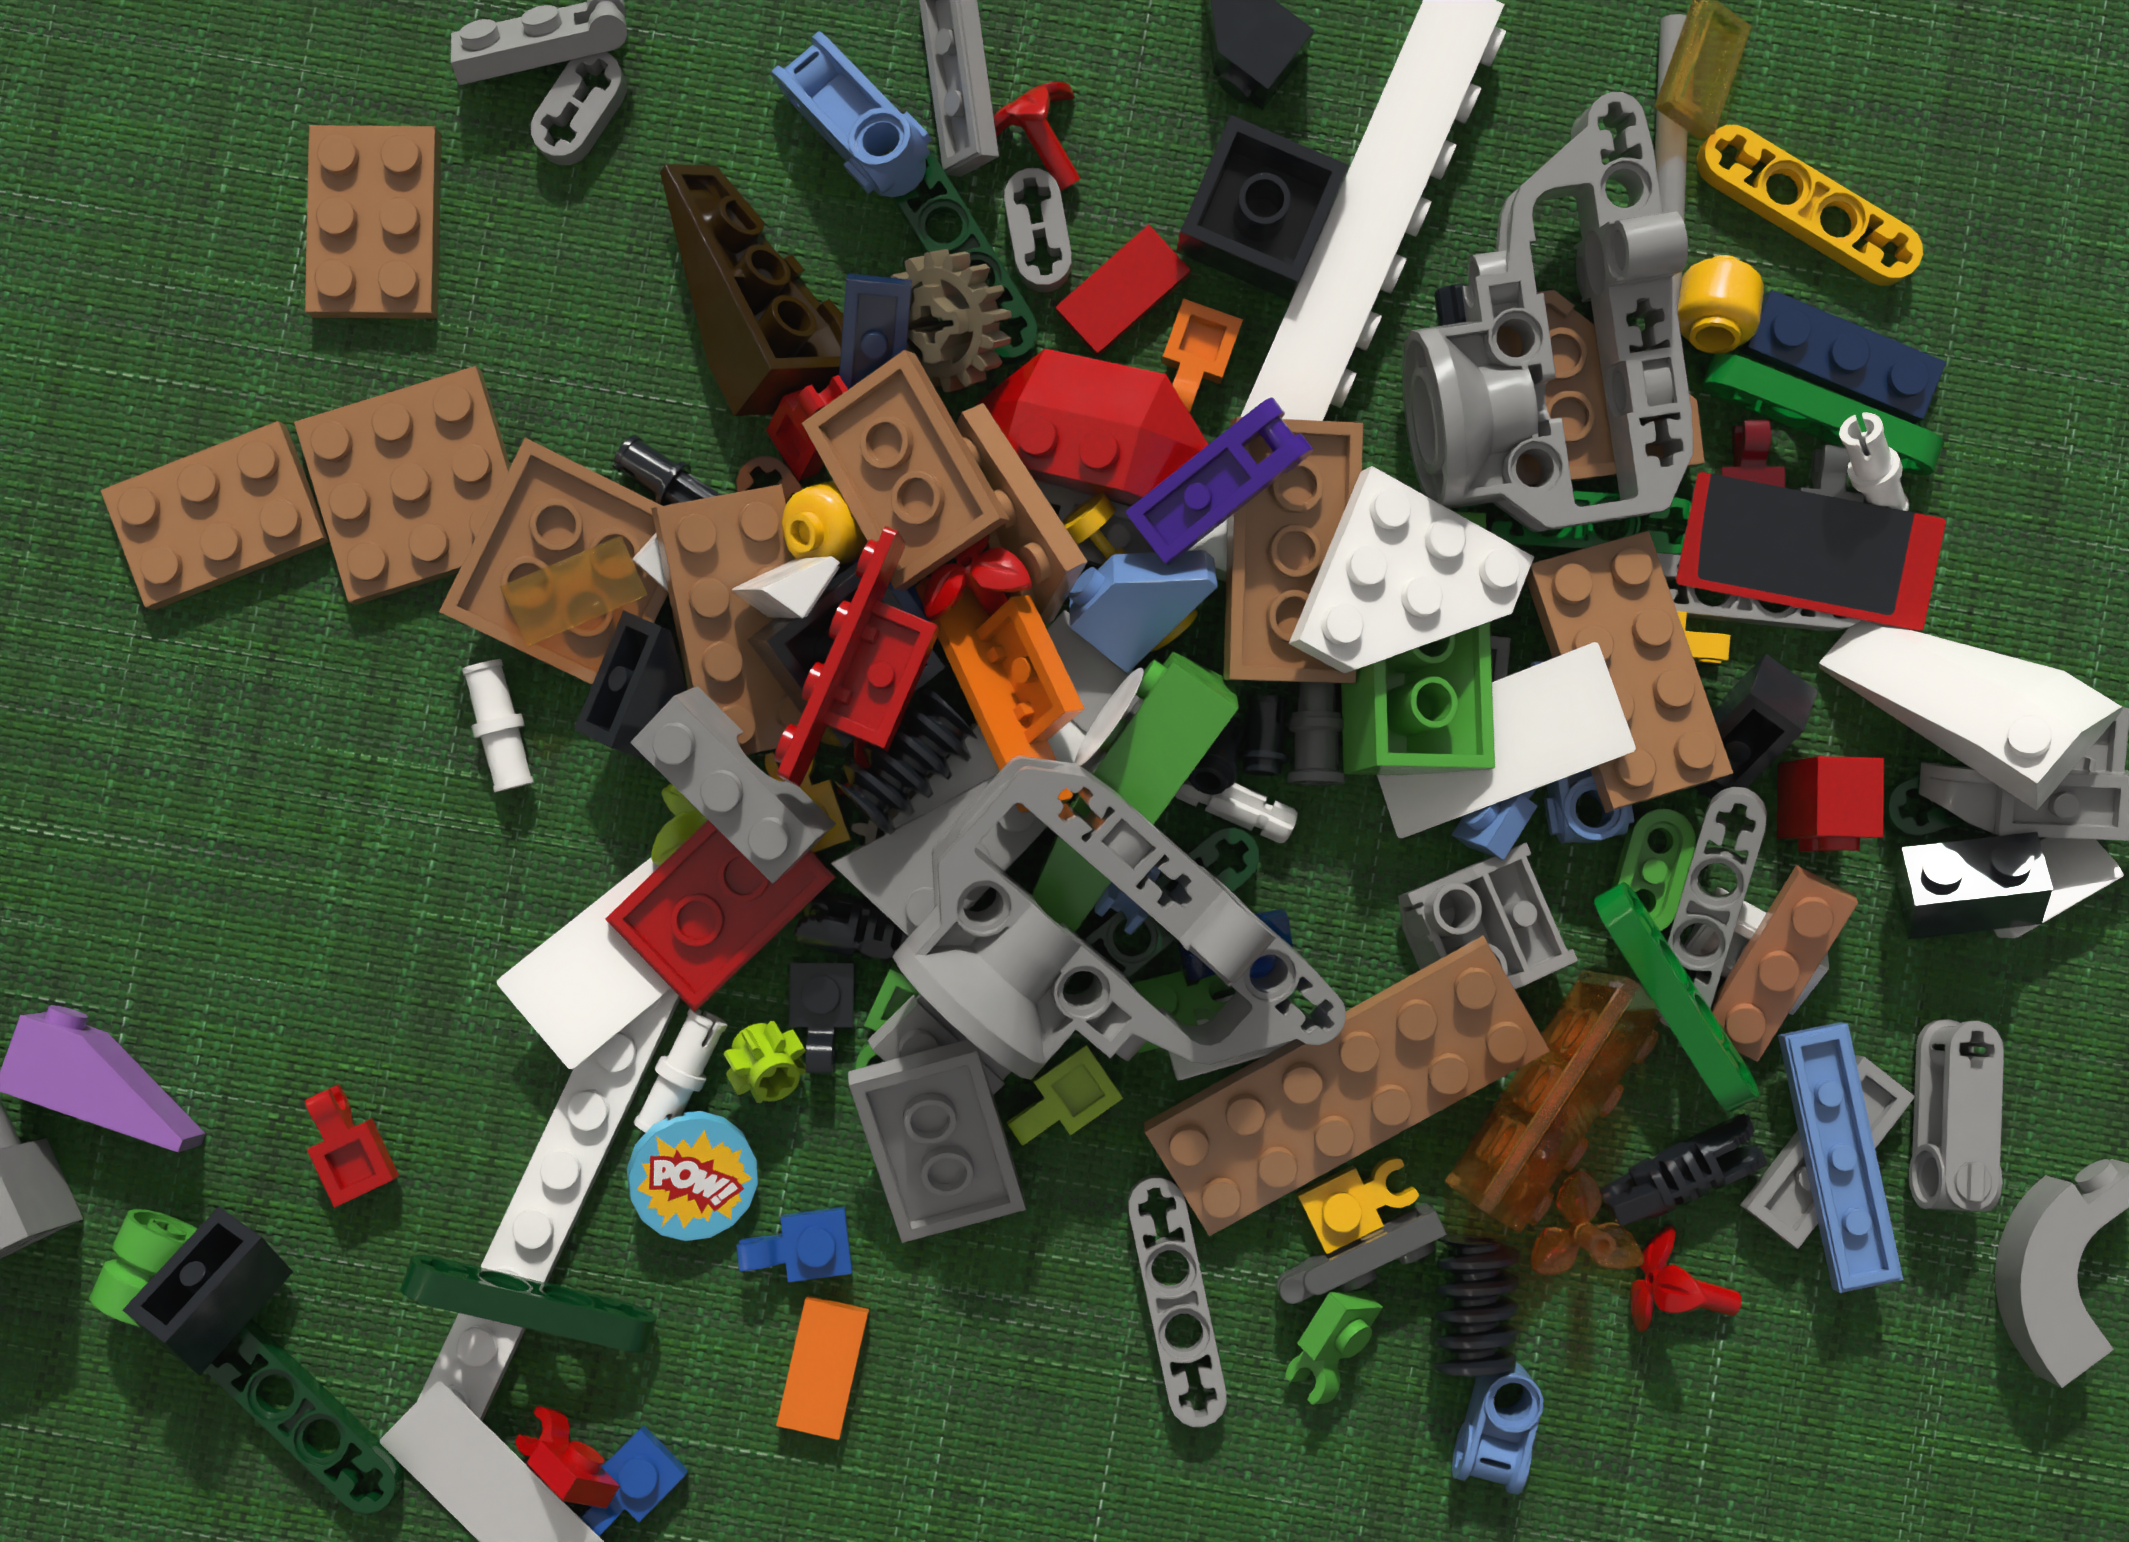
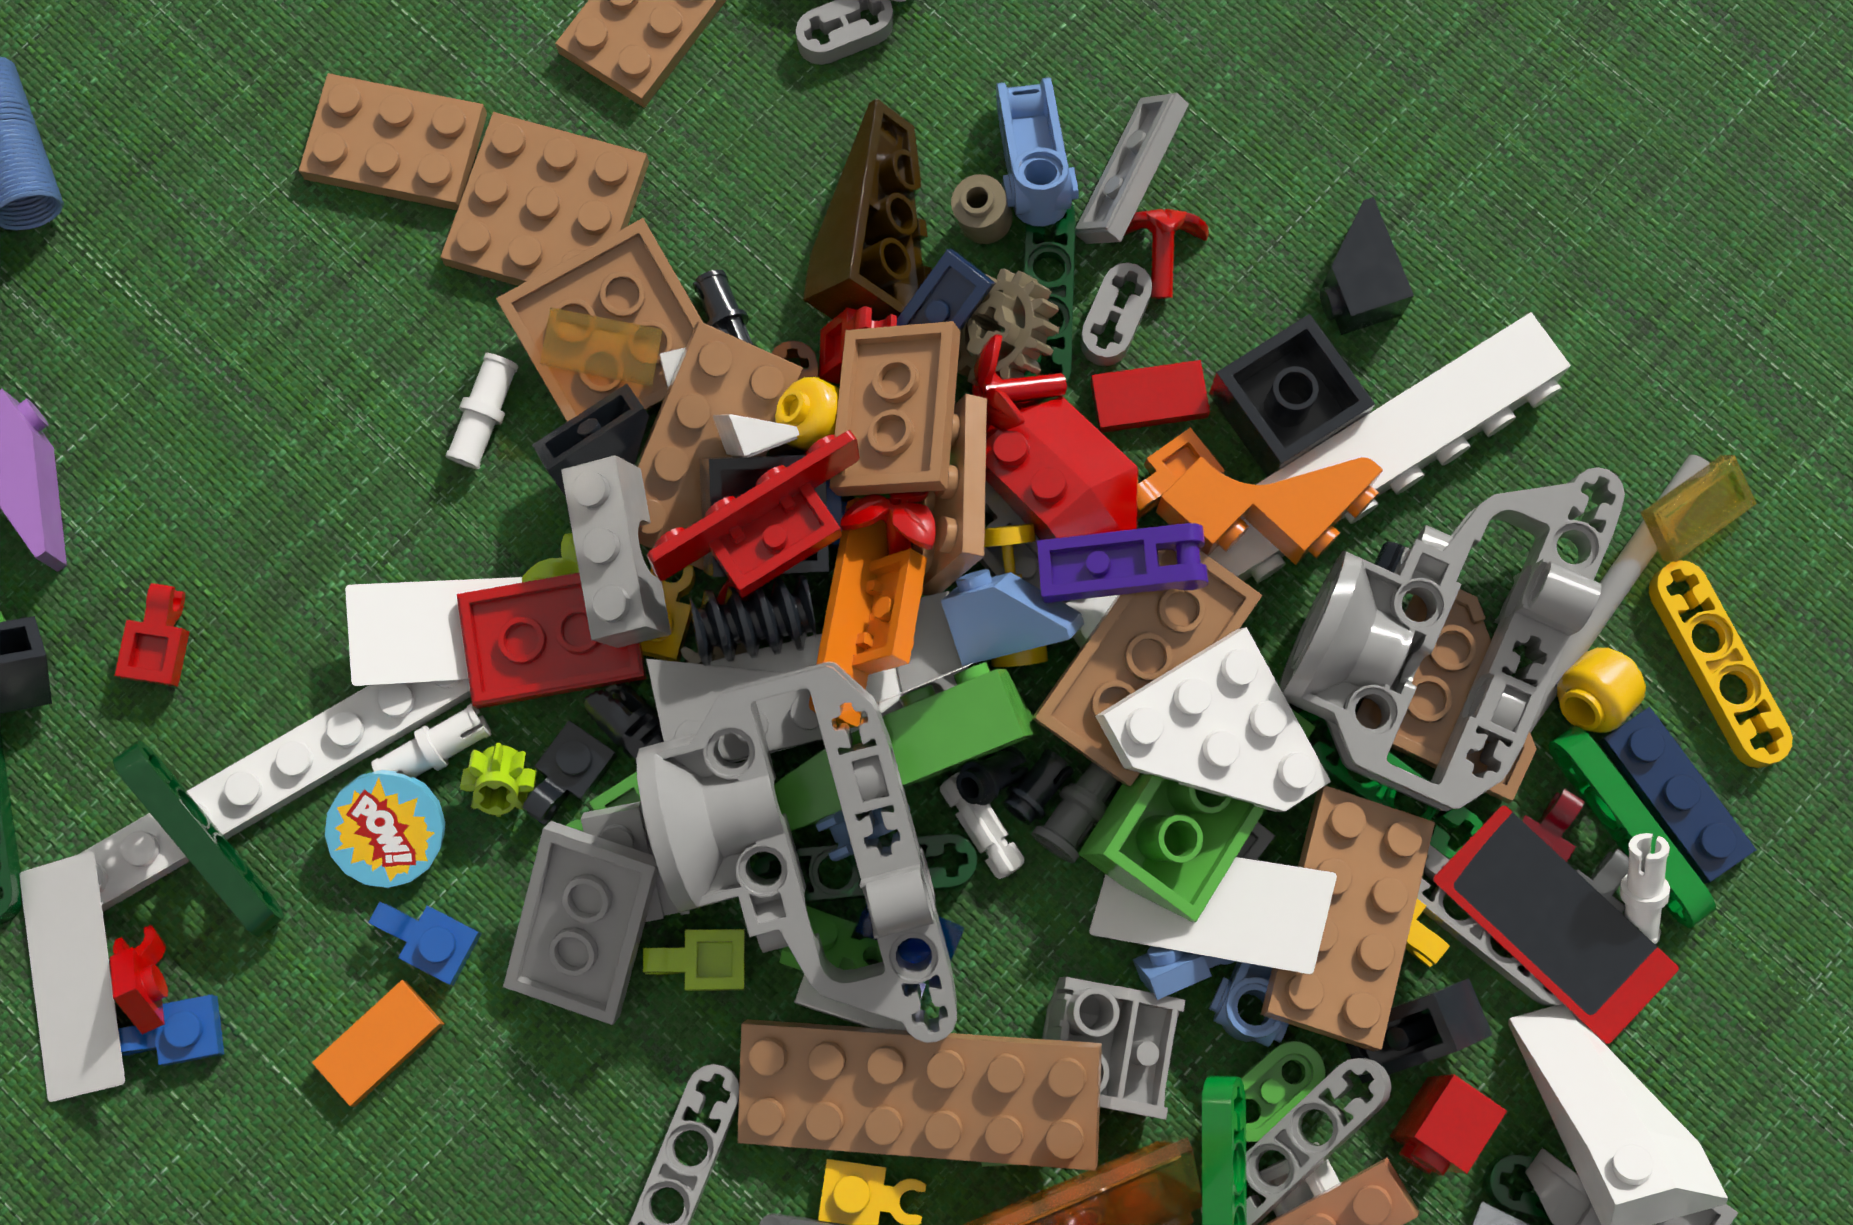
camera: 40 degrees right, 10 degrees down
(859, 222) = (982, 209): none -> dark tan brick
(988, 385) = (1002, 392): none -> red plant
(1342, 328) = (1290, 513): none -> orange arch

